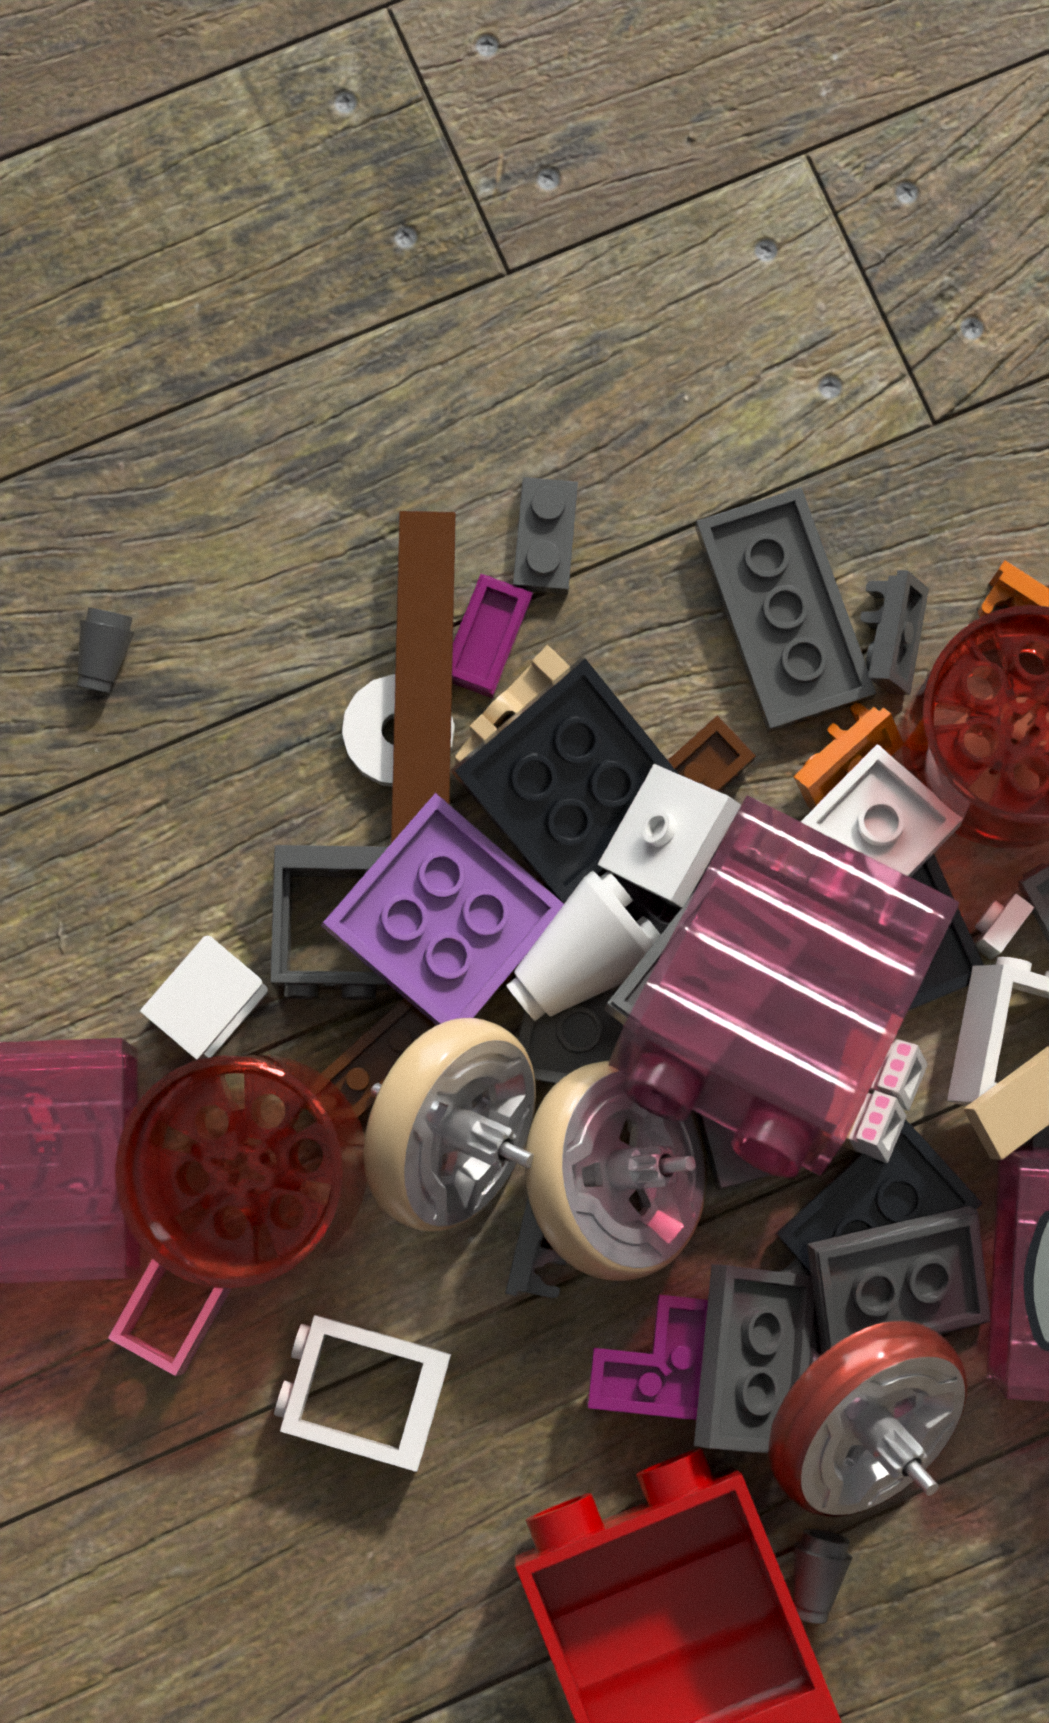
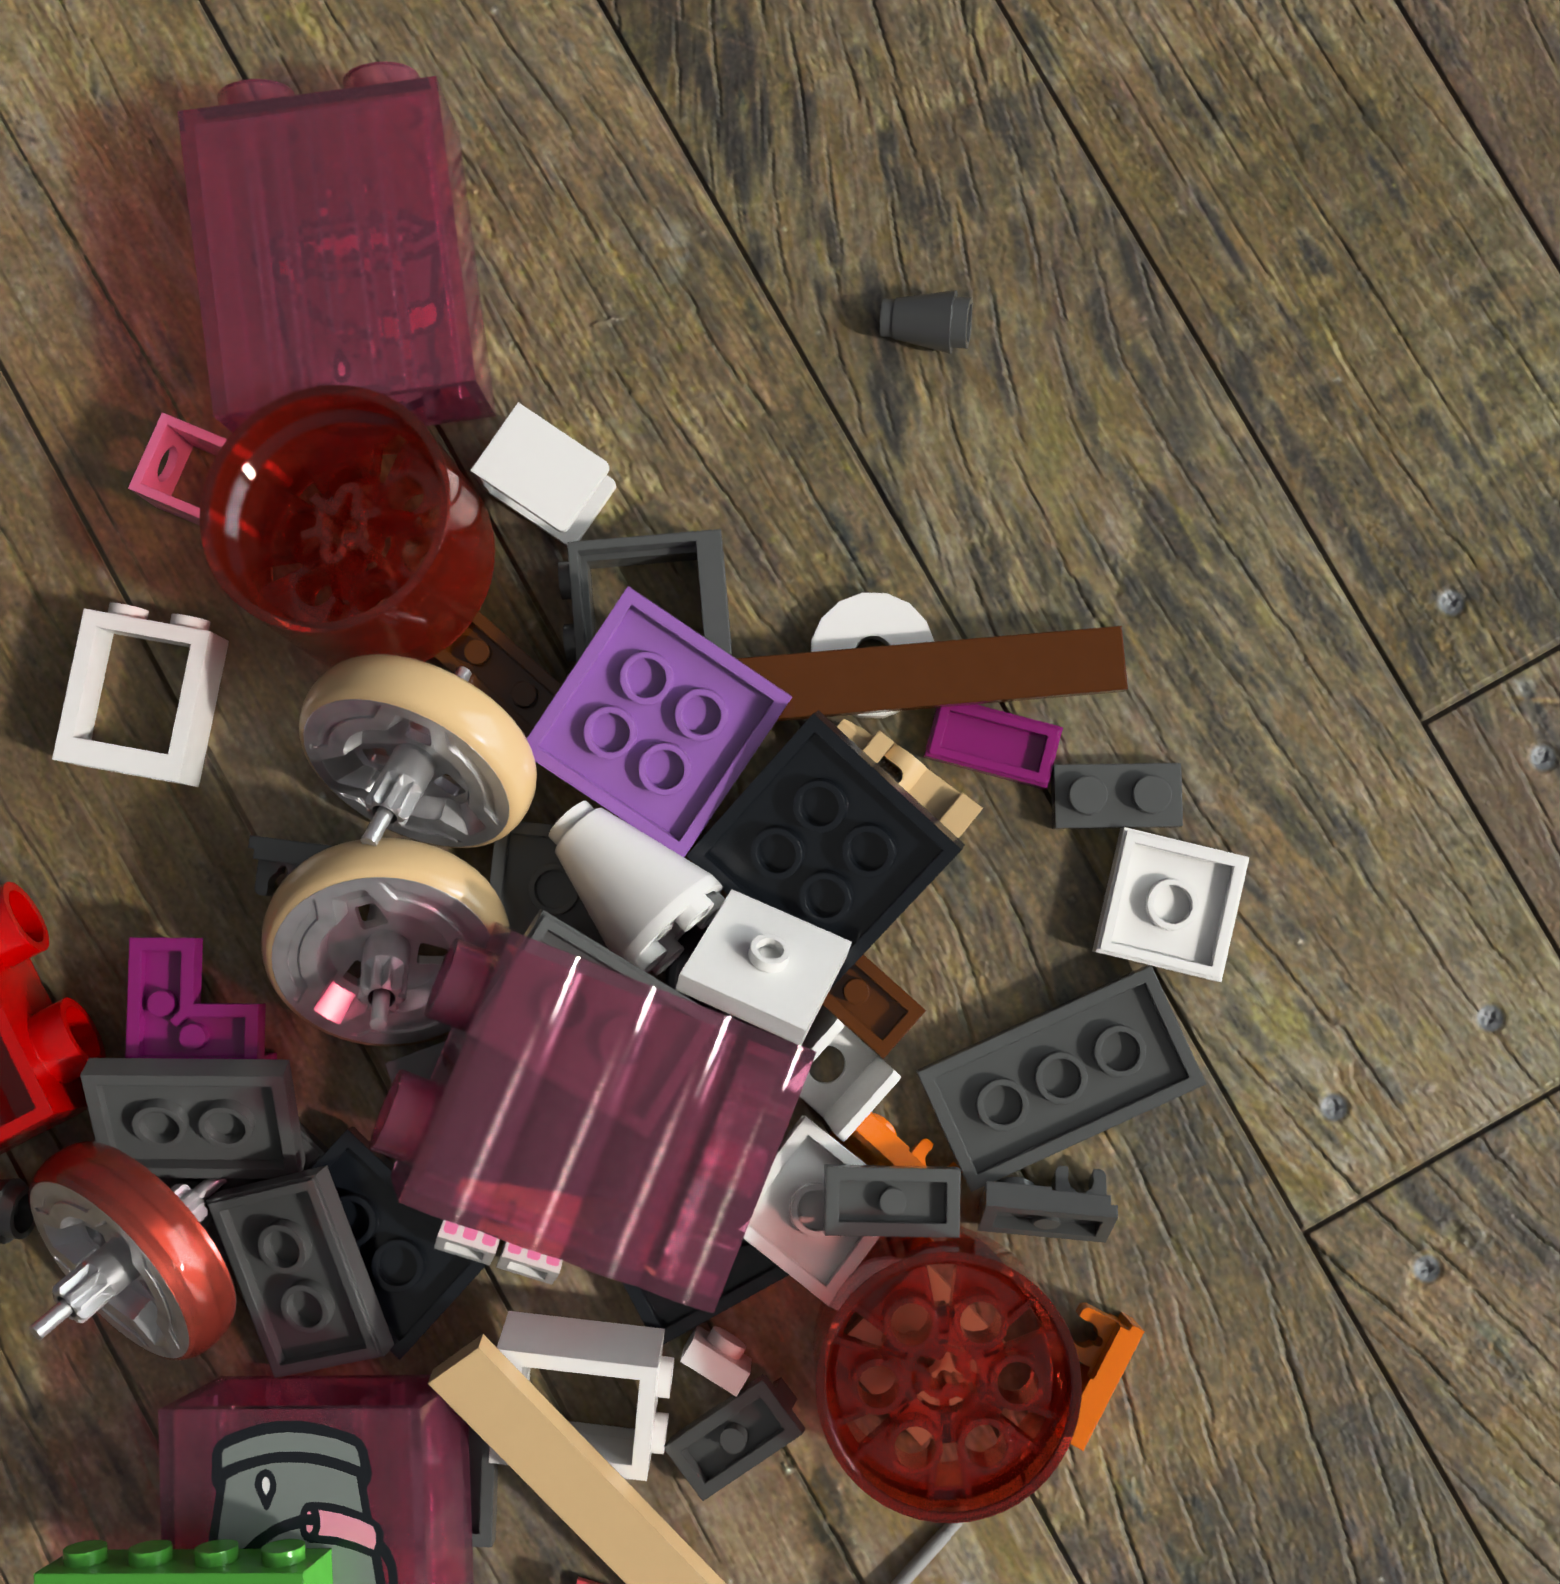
camera: 90 degrees right, 5 degrees up
(644, 500) = (1170, 904): none -> white plate
(778, 778) = (858, 1088): none -> white piece
(878, 754) = (891, 1201): none -> dark grey plate

